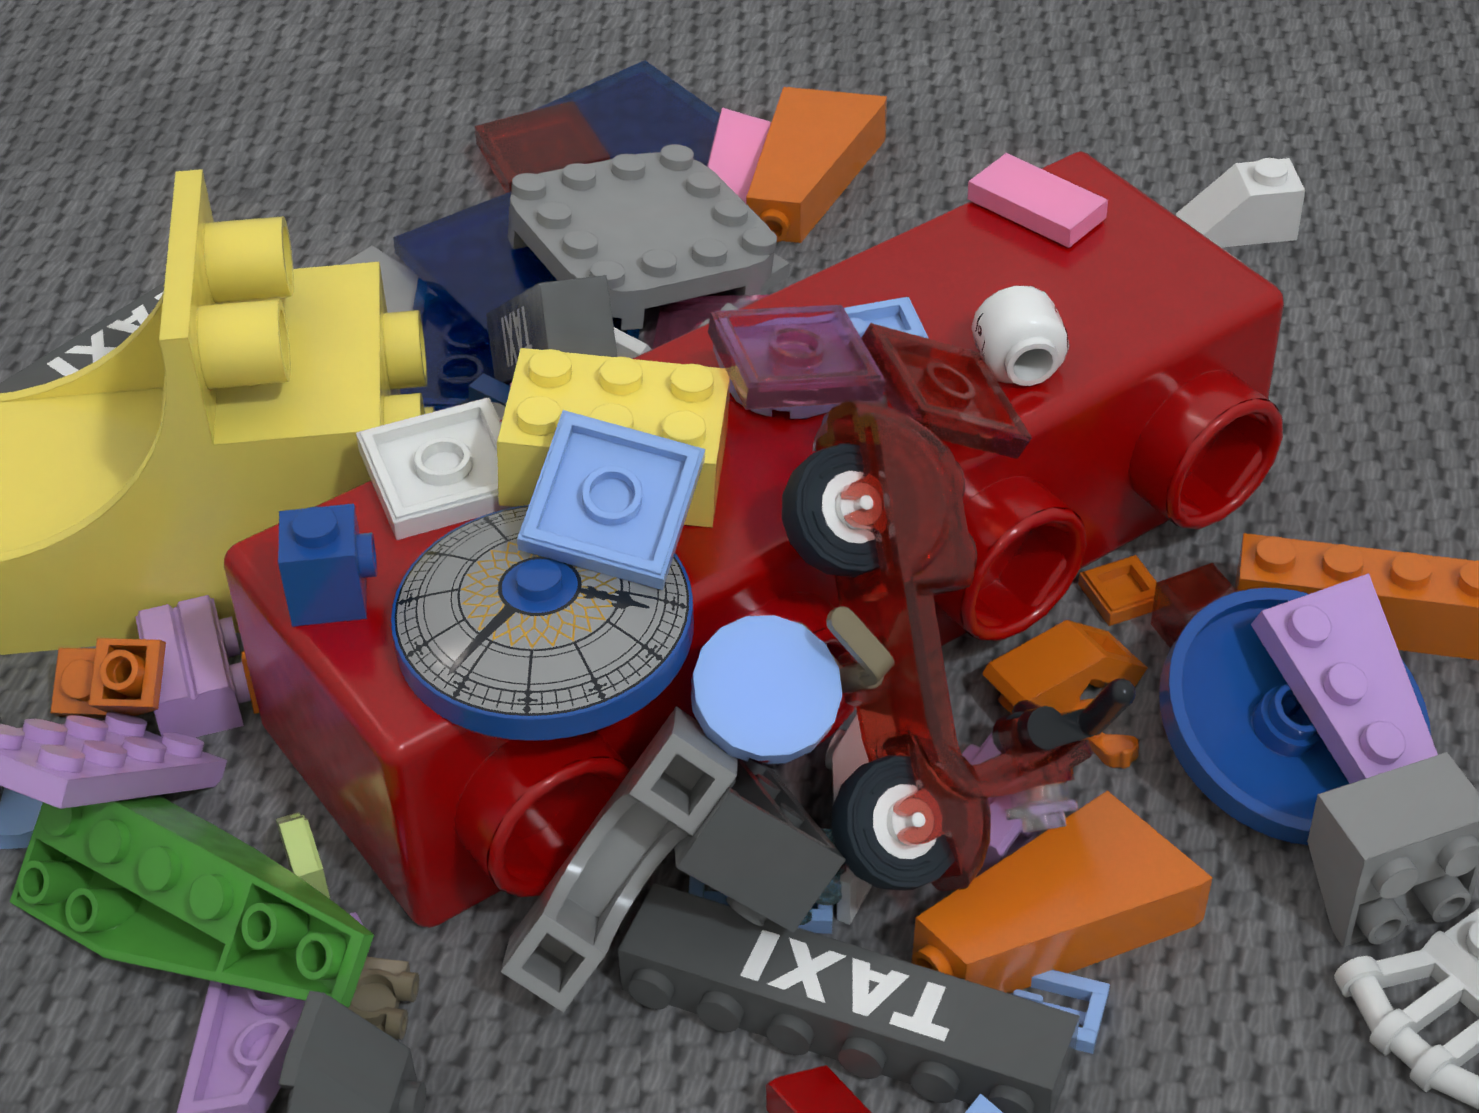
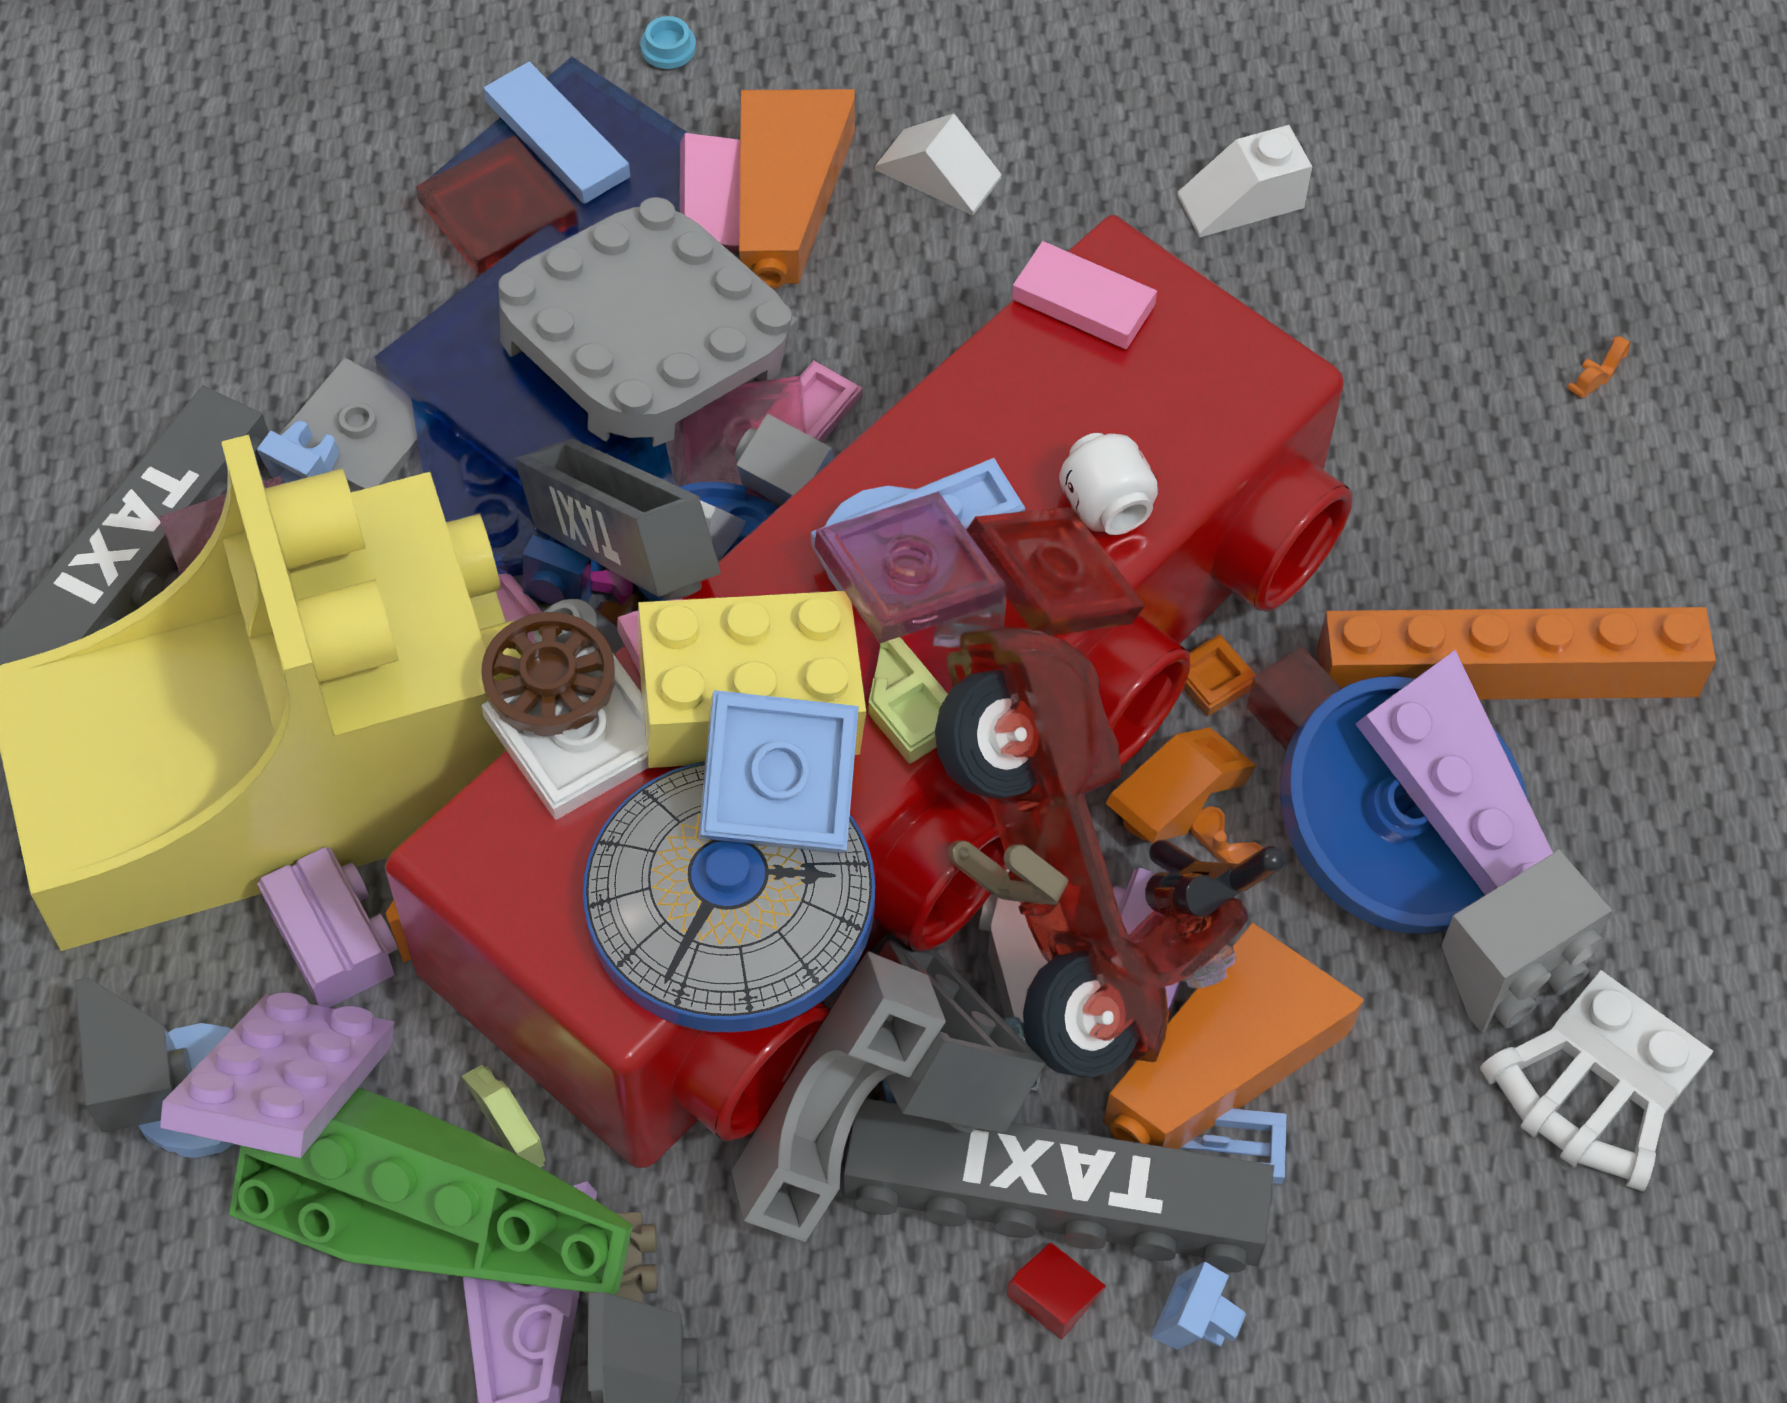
camera: 15 degrees left, 15 degrees up
(111, 678) = (256, 960): orange slope -> none
(325, 564) = (508, 876): blue brick -> none
(425, 411) = (548, 673): none -> reddish brown wheel
(612, 105) = (556, 132): none -> light blue tile
(733, 59) = (668, 43): none -> medium azure plate
(761, 482) = (905, 700): none -> yellowish green tile
(765, 689) = (951, 924): light blue tile -> none
(950, 161) = (942, 162): none -> white slope

